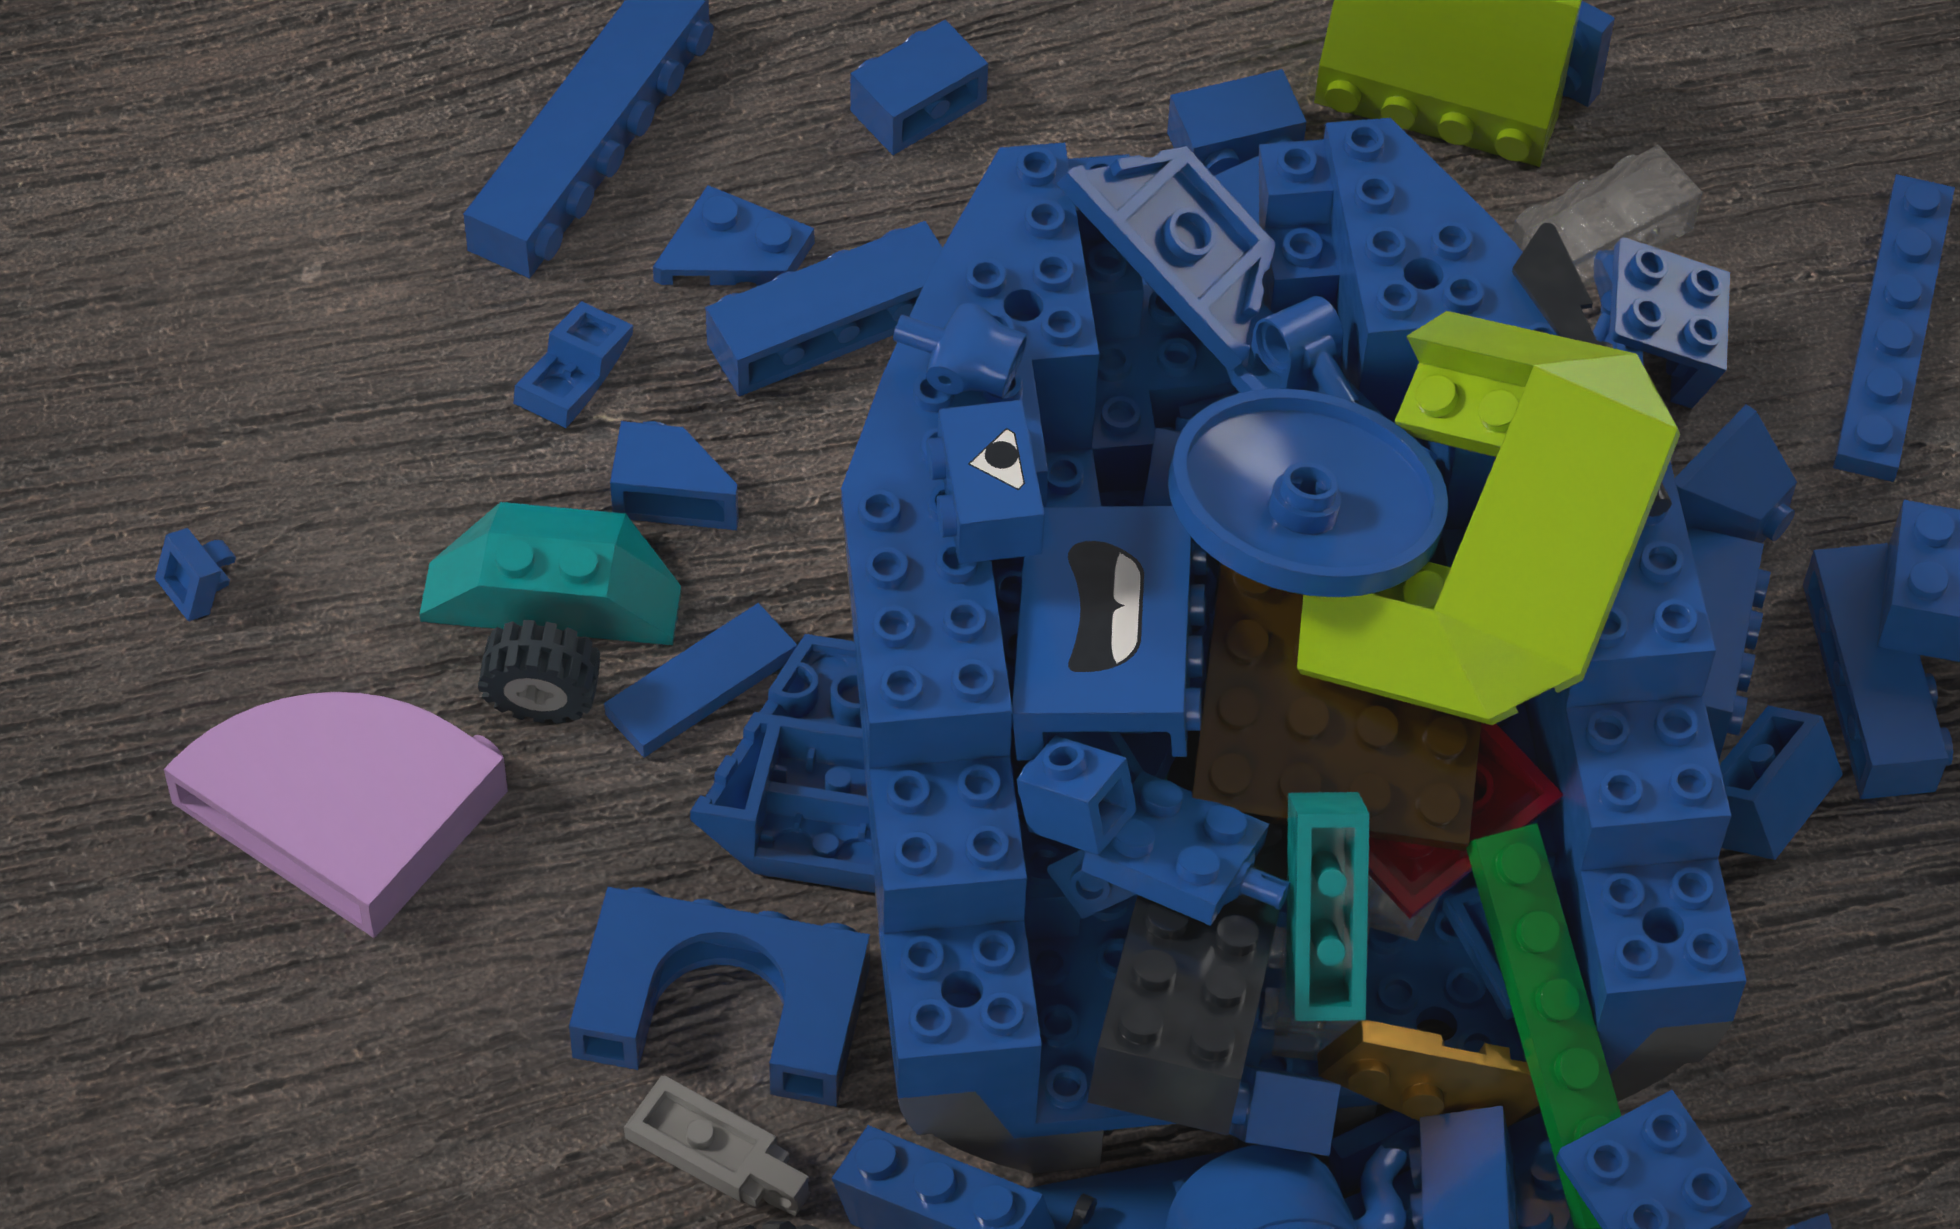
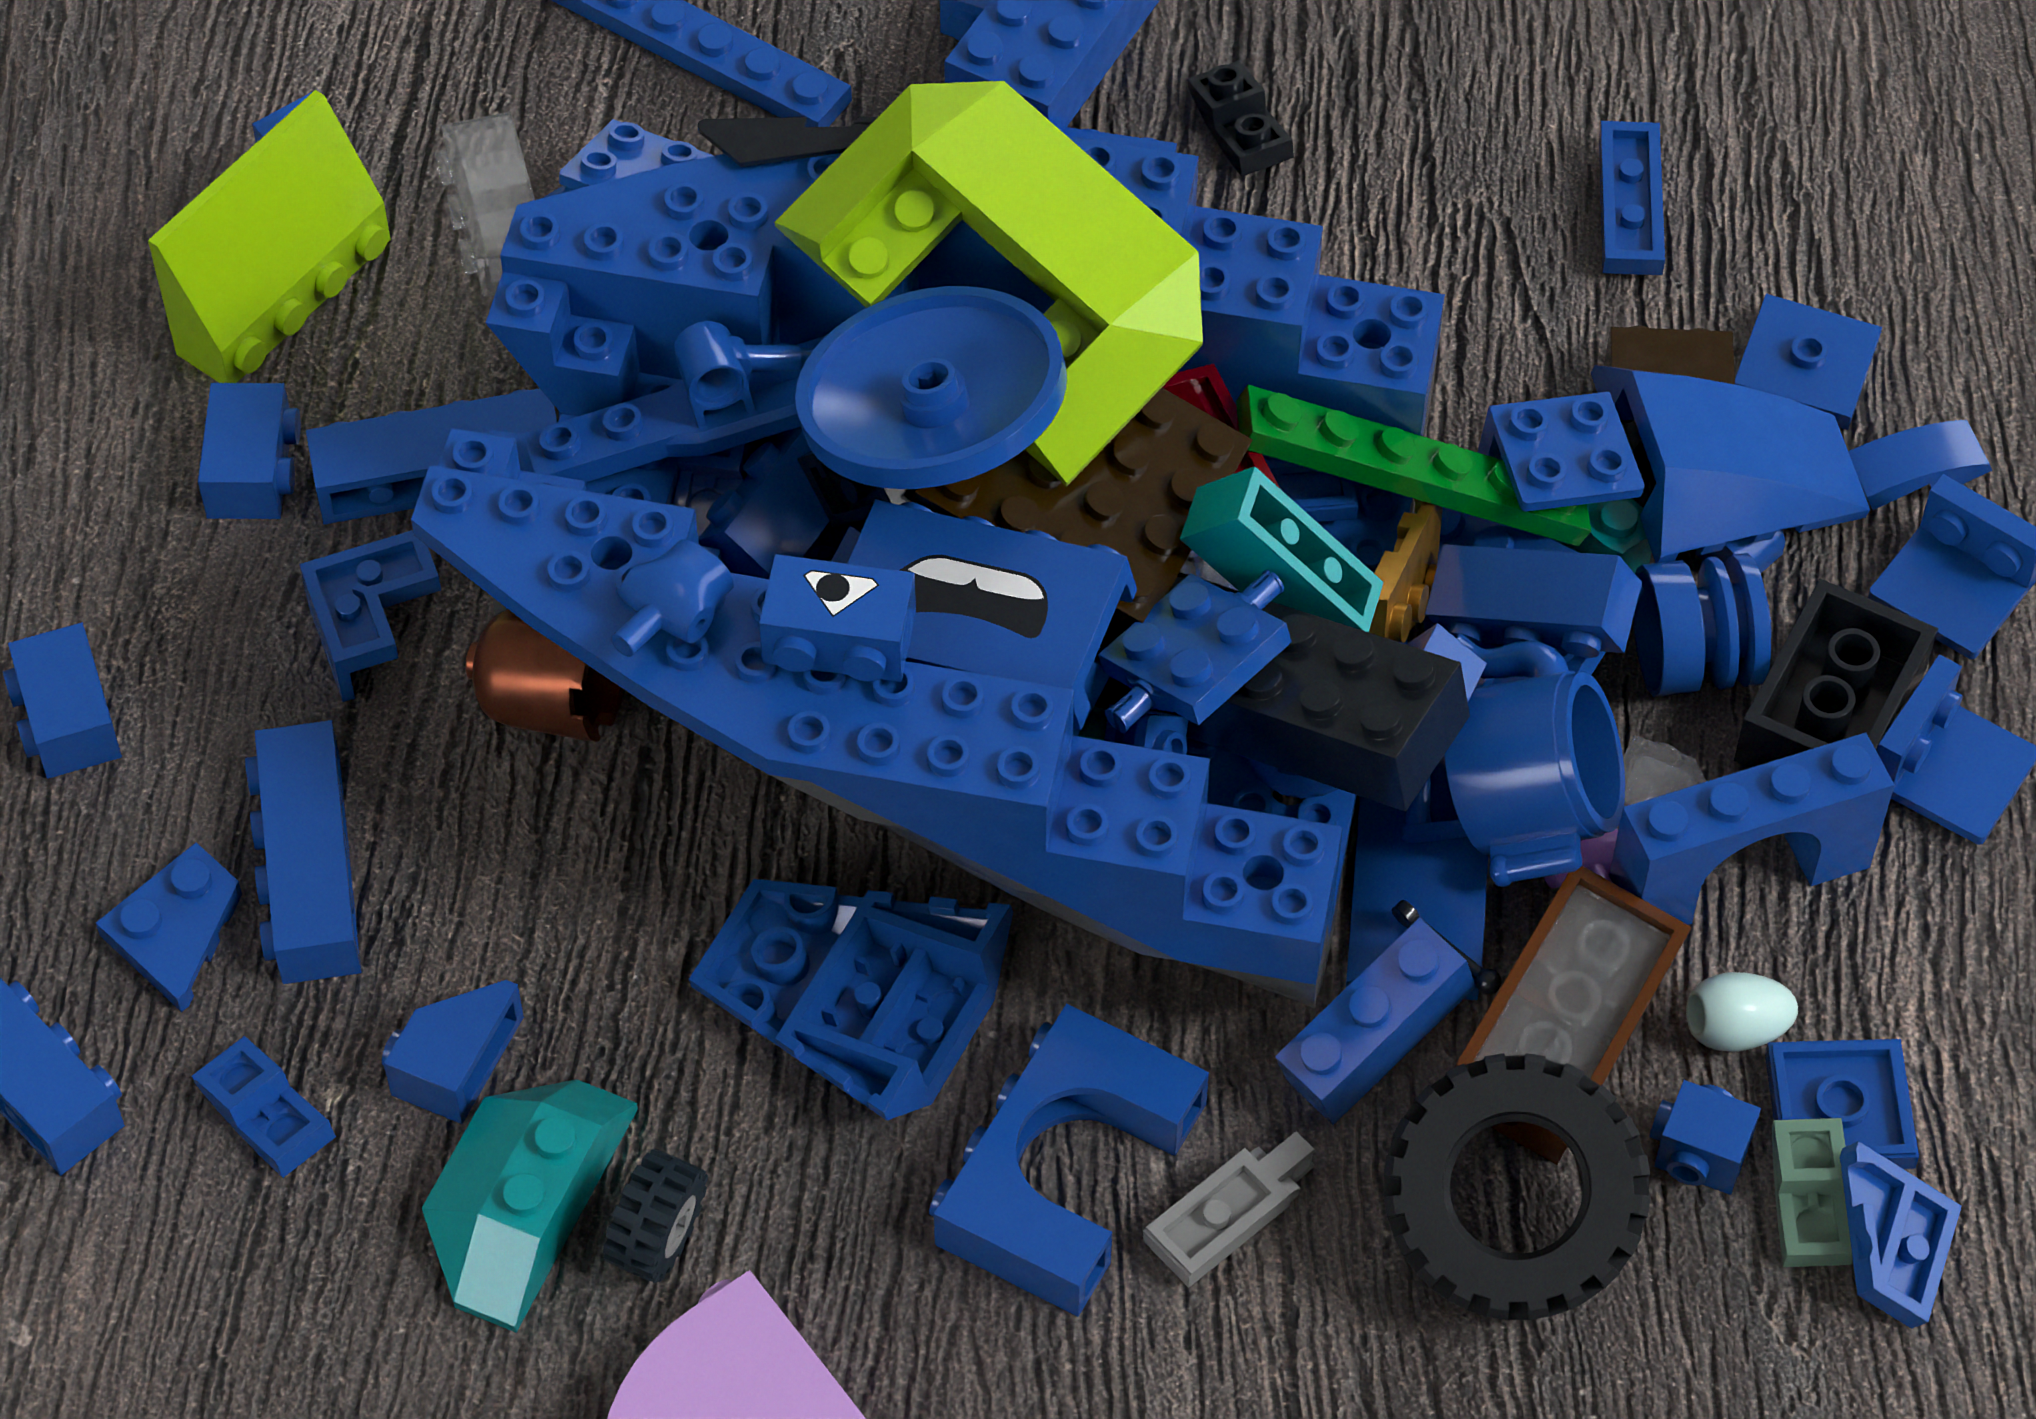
camera: 70 degrees left, 0 degrees up
(700, 680) = (697, 1088): blue tile -> none
(1076, 794) = (1144, 688): blue brick -> none
(1182, 240) = (570, 417): blue wing -> none

